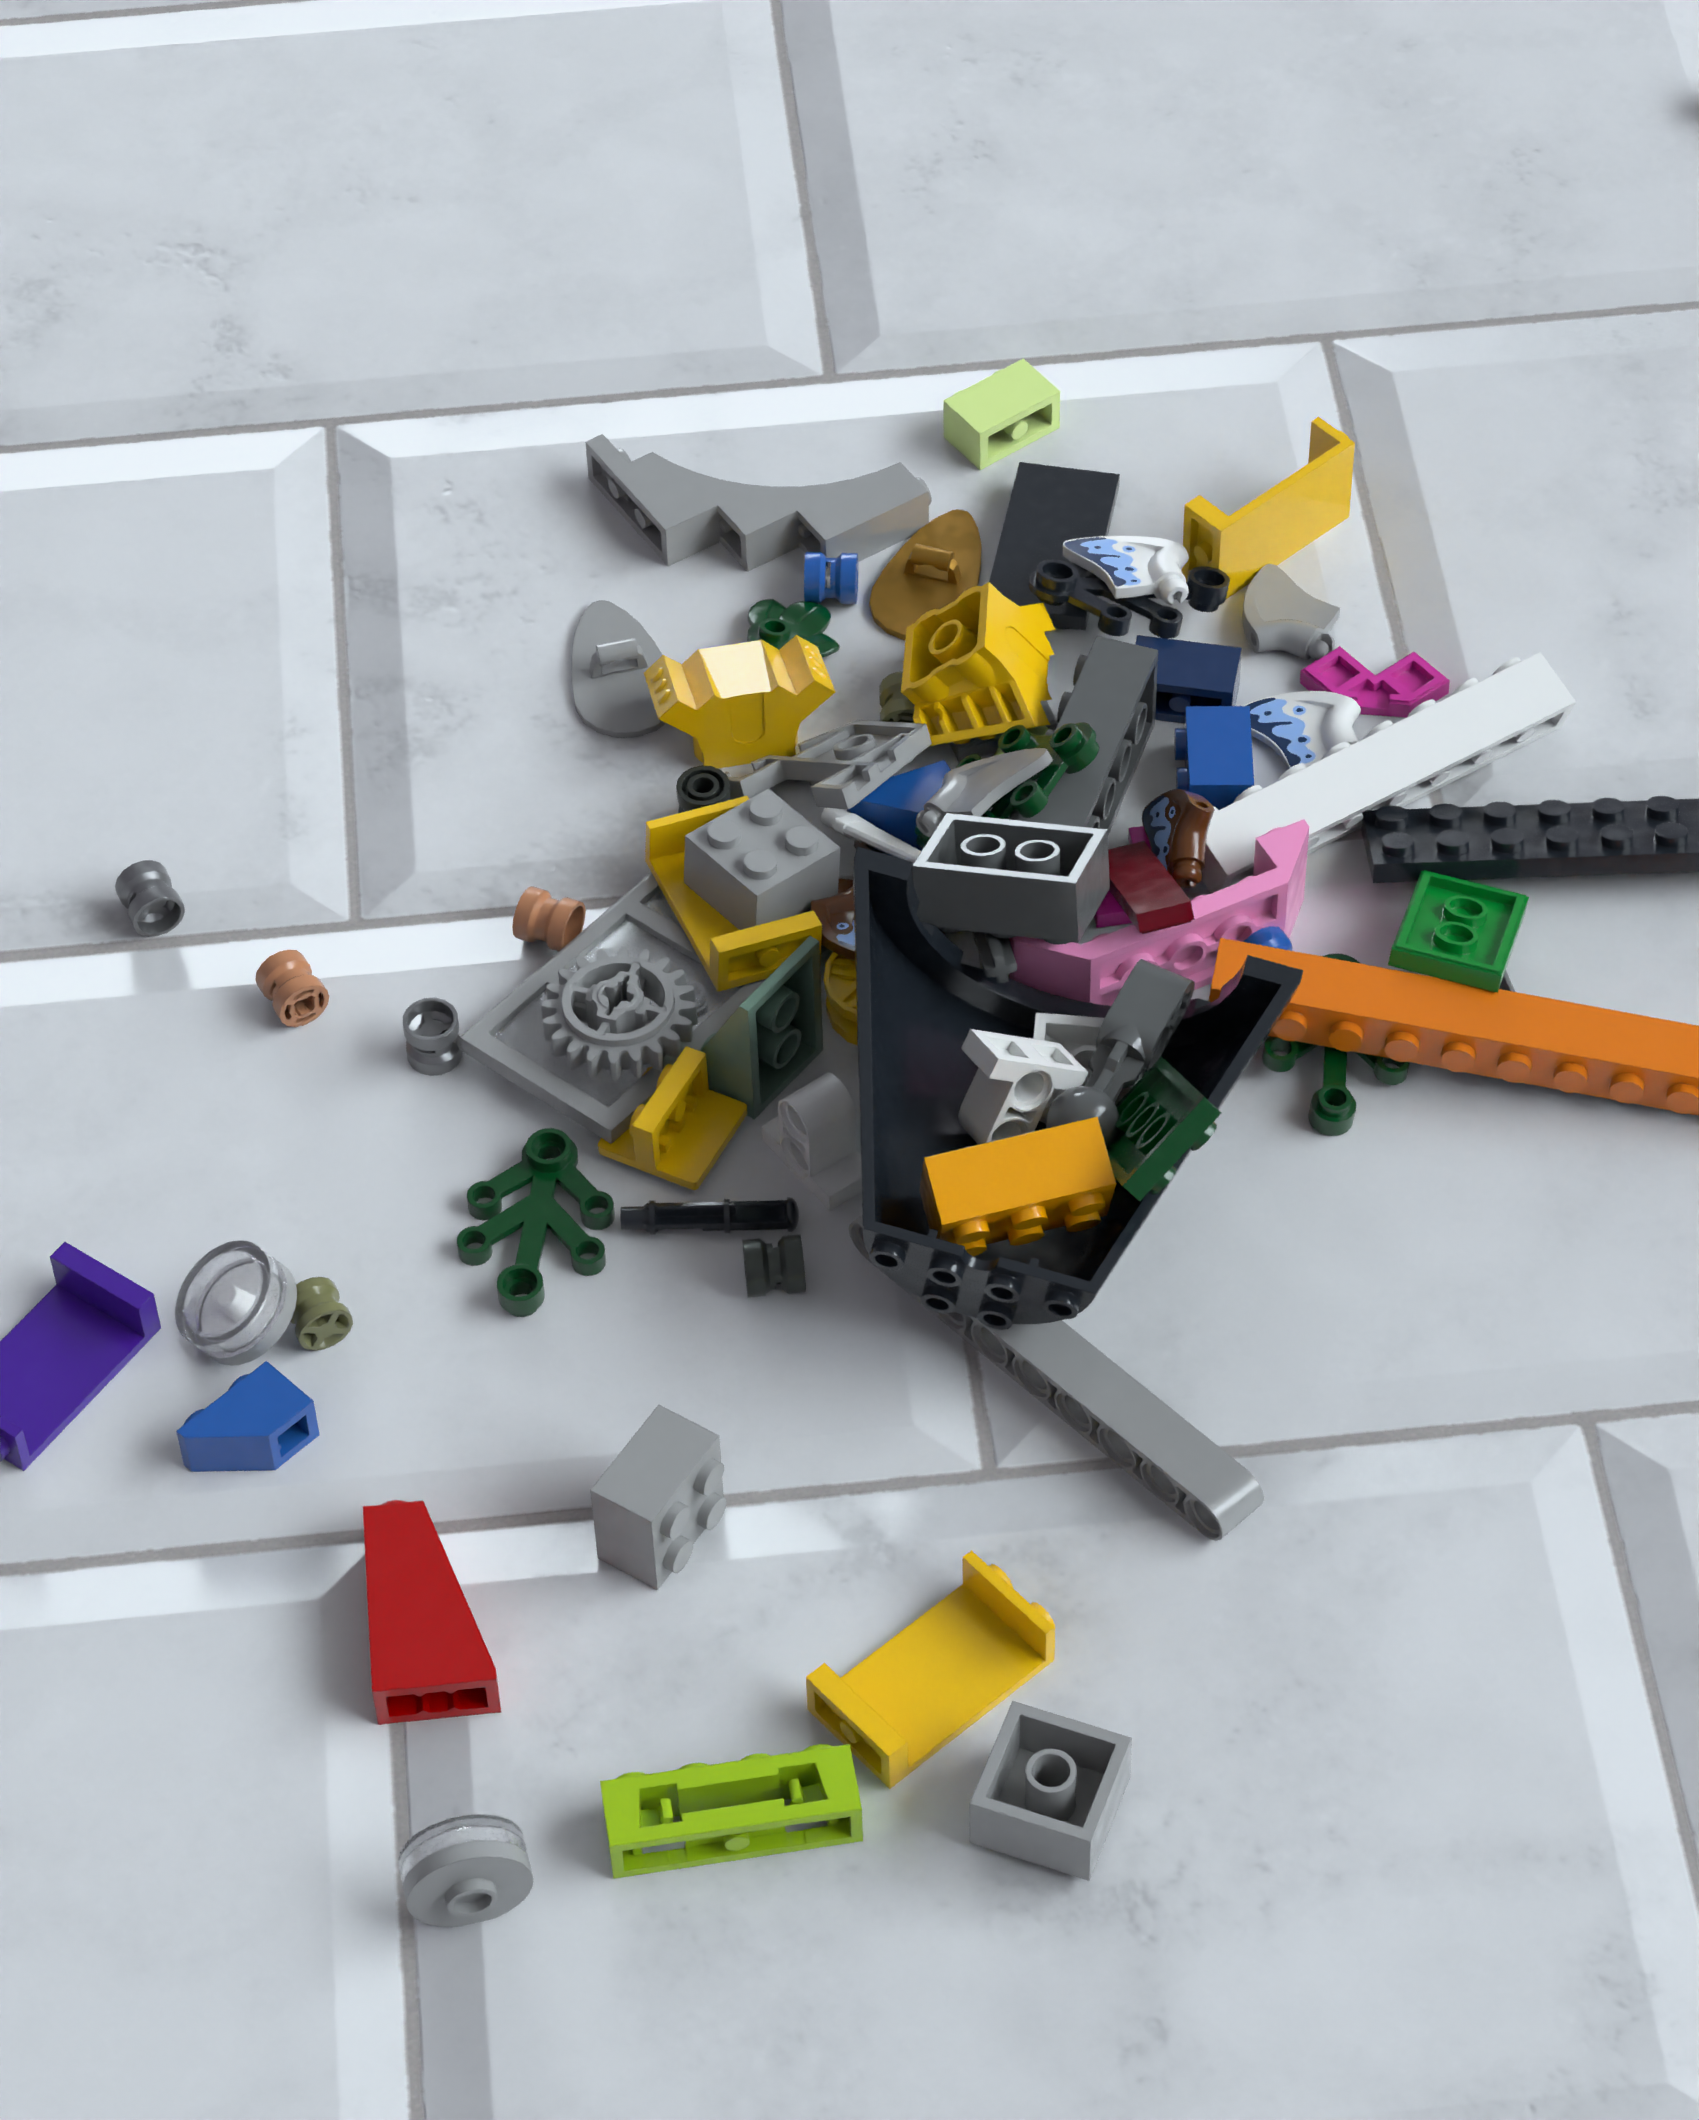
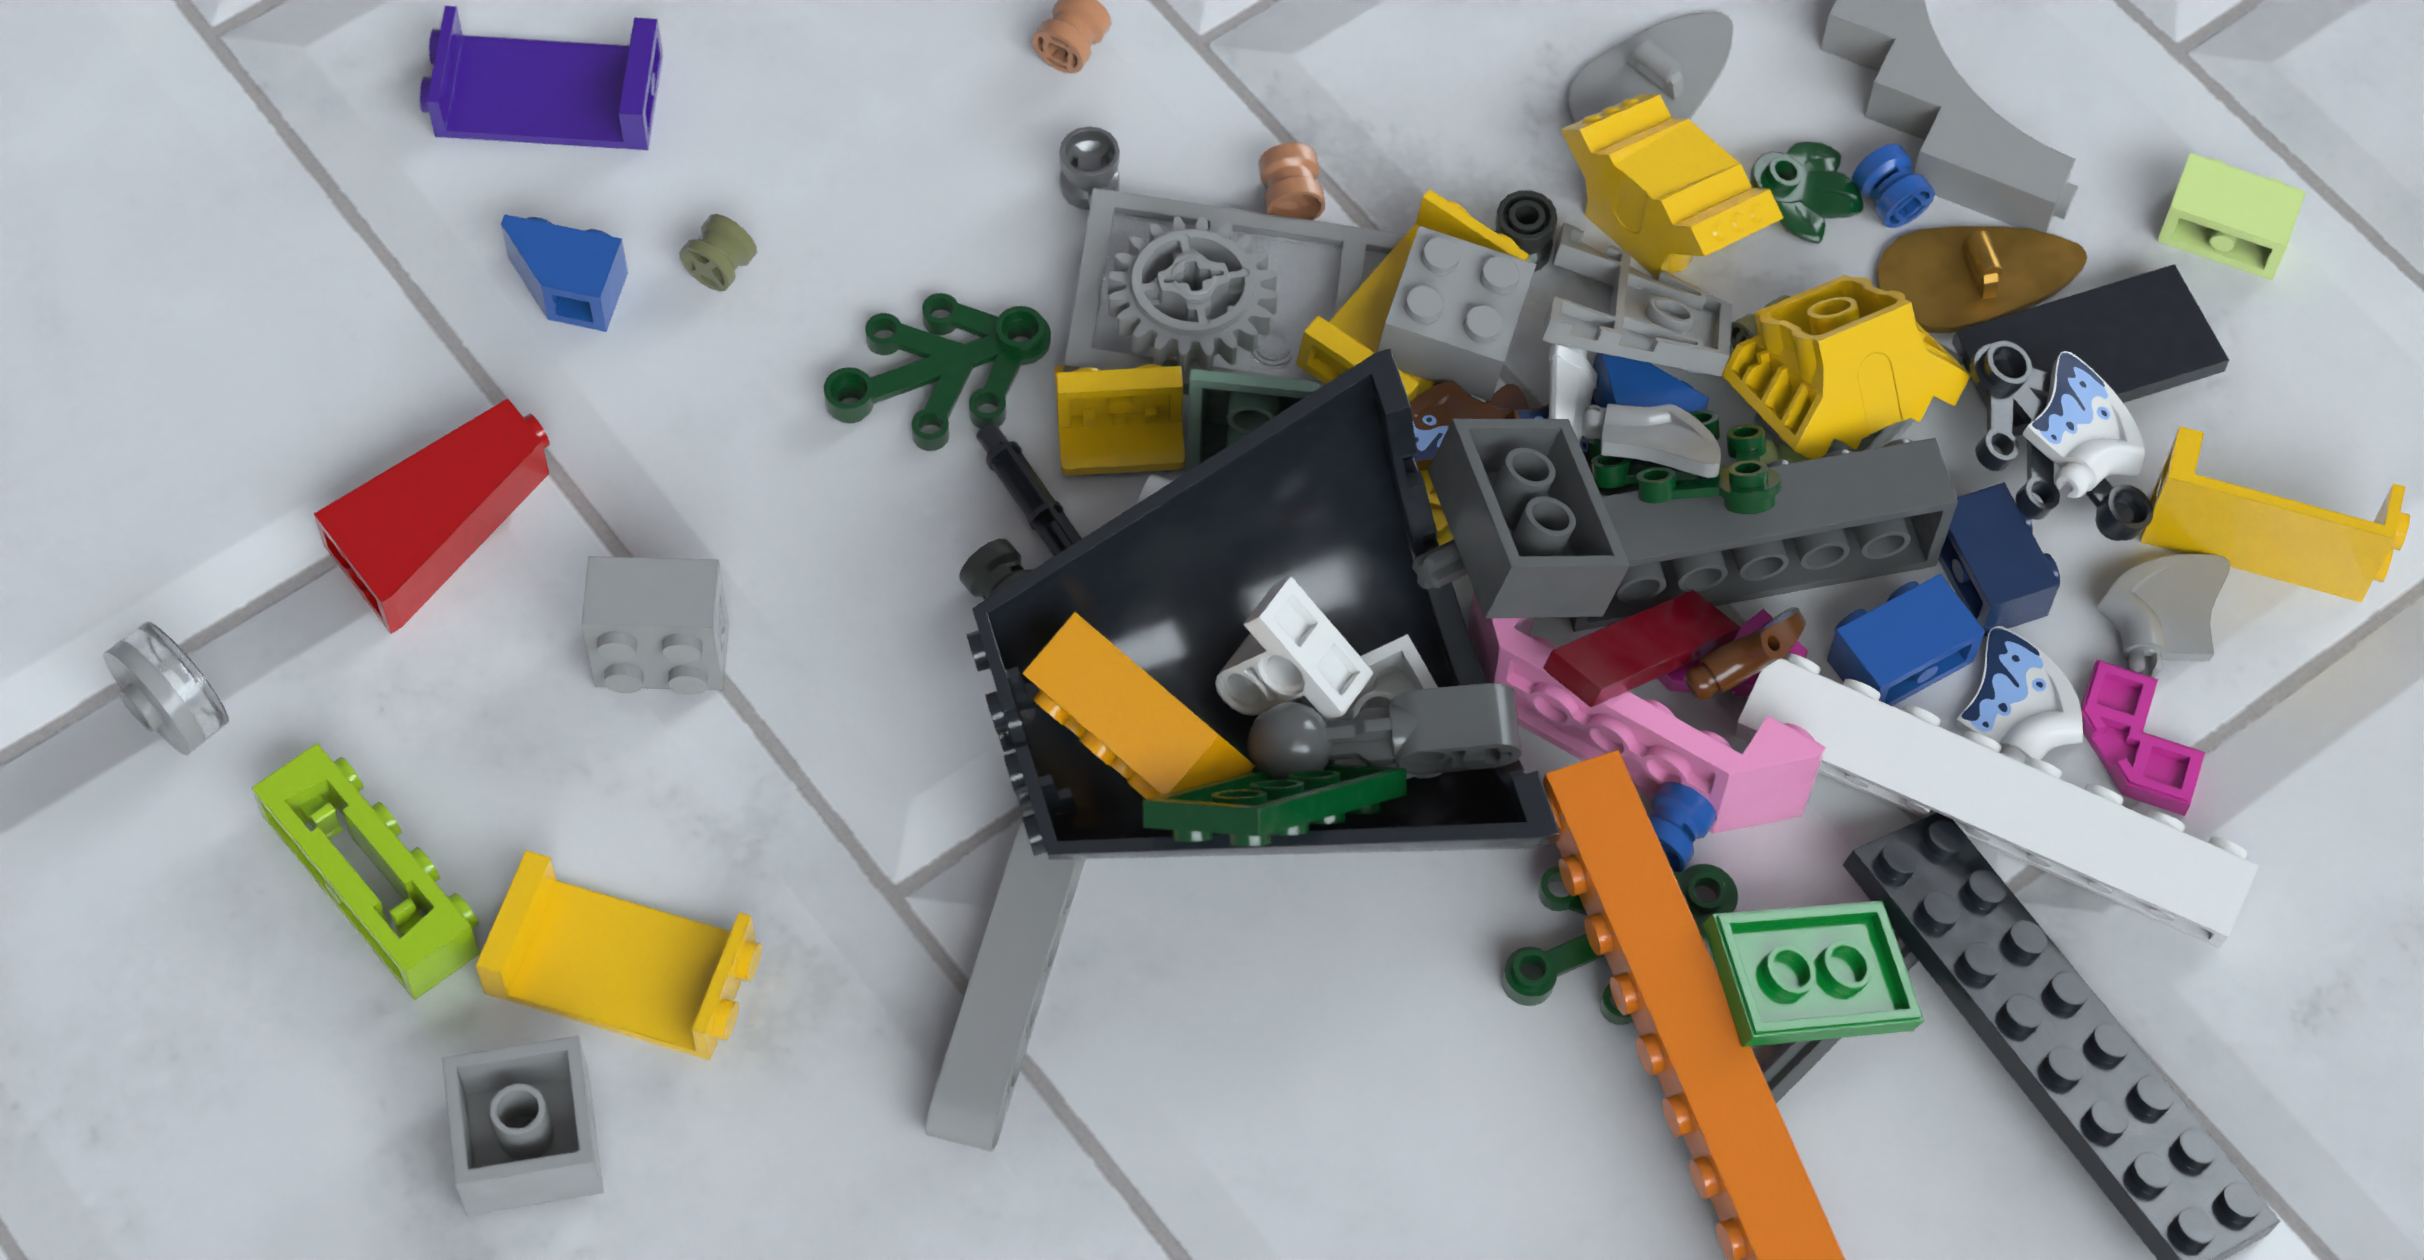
camera: 55 degrees right, 10 degrees up
(236, 1303) = (678, 182): clear piece -> none

